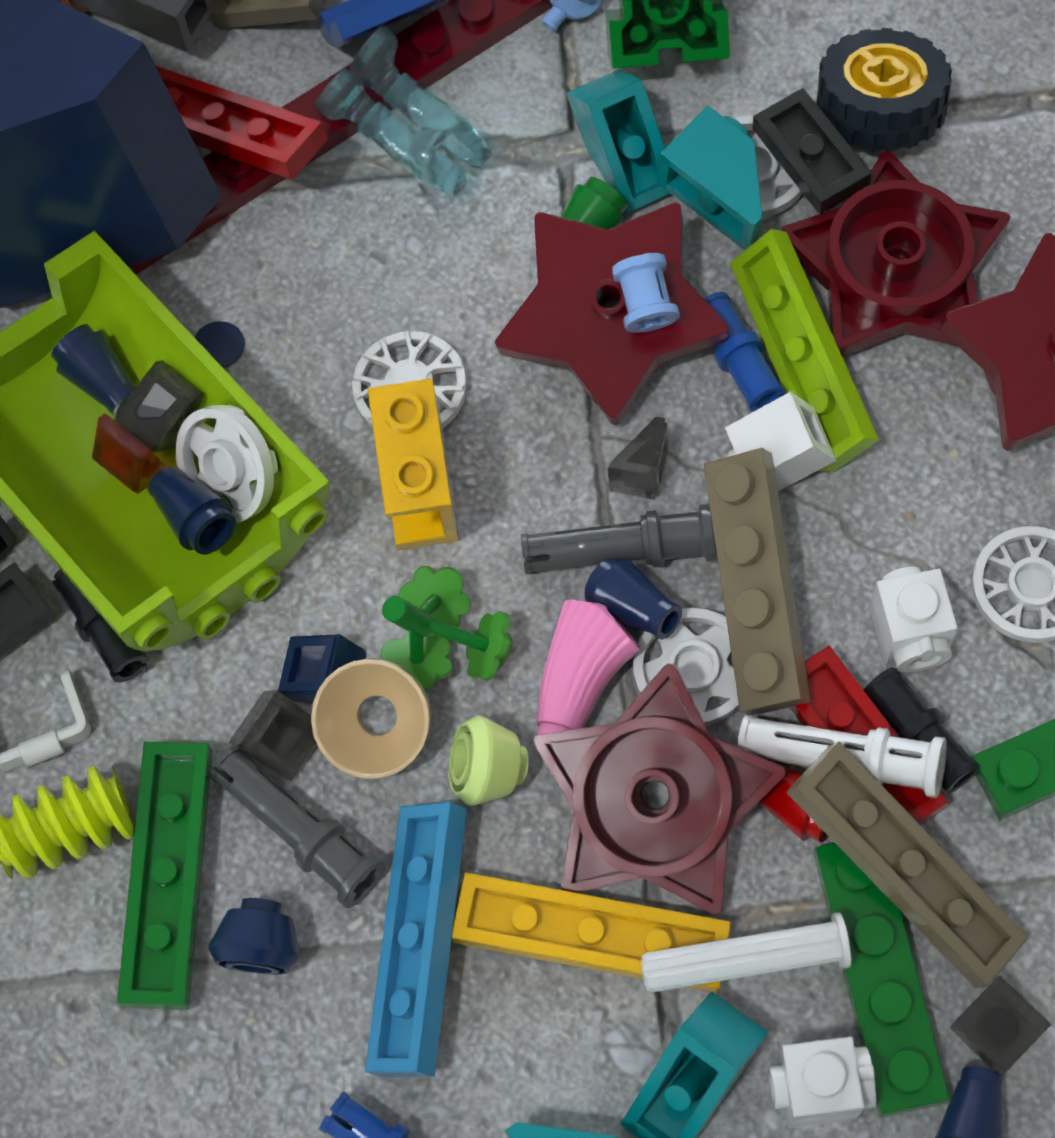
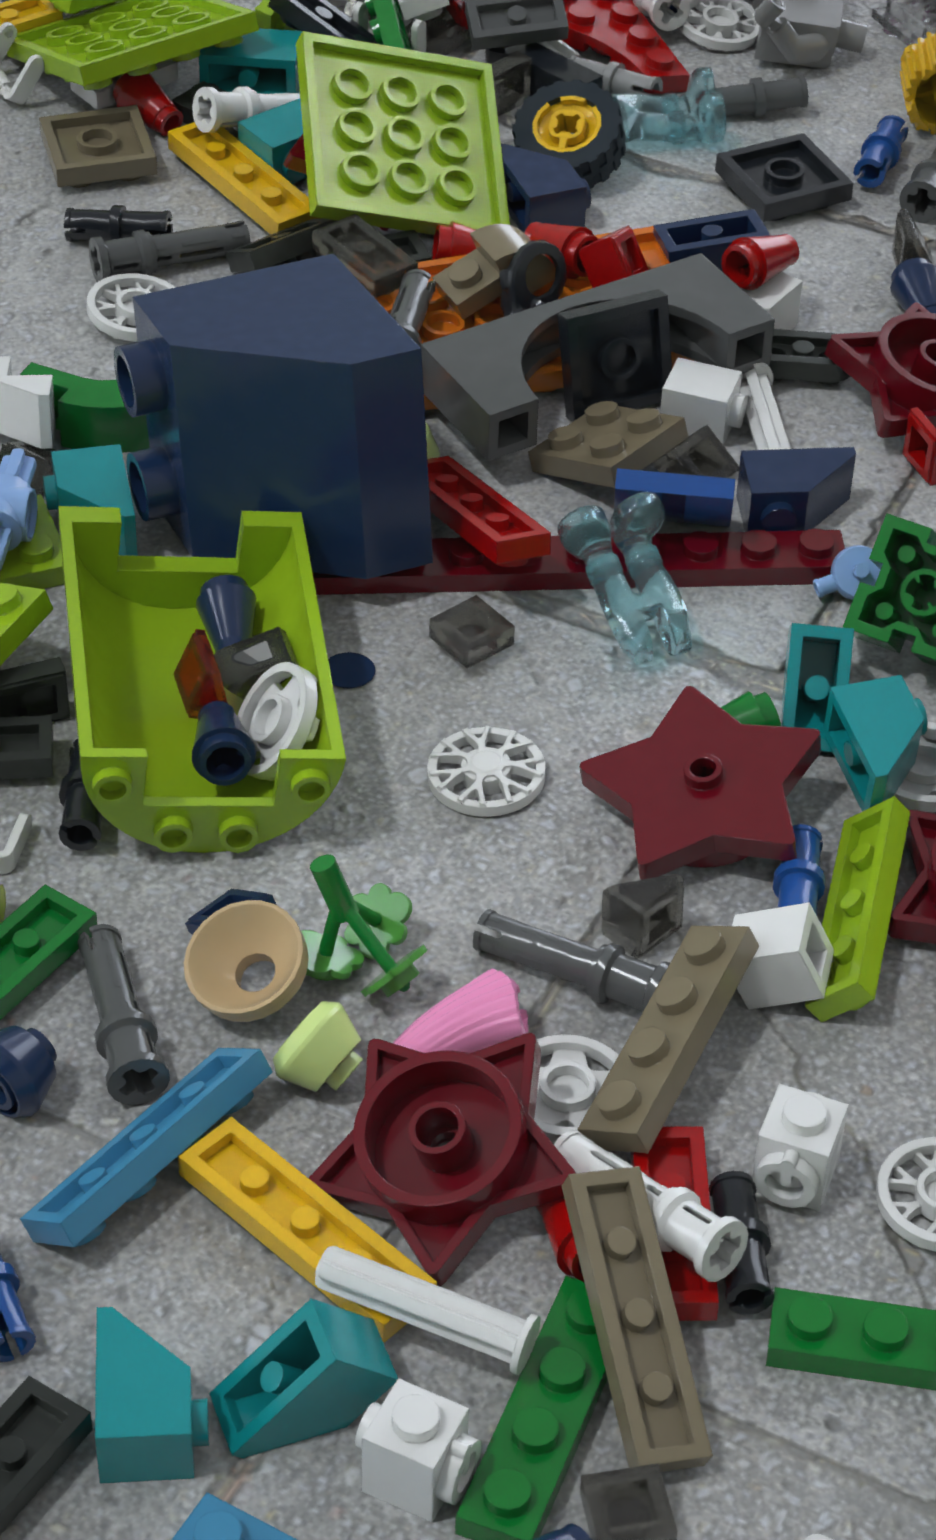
camera: 25 degrees right, 25 degrees down
(276, 734) = (158, 946): clear smoke slope -> none
(300, 247) = (471, 631): none -> clear smoke plate
(413, 463) = (444, 777): yellow panel -> none
(632, 598) = (549, 1000): dark blue cone -> none
(645, 293) = (734, 770): light blue bush -> none

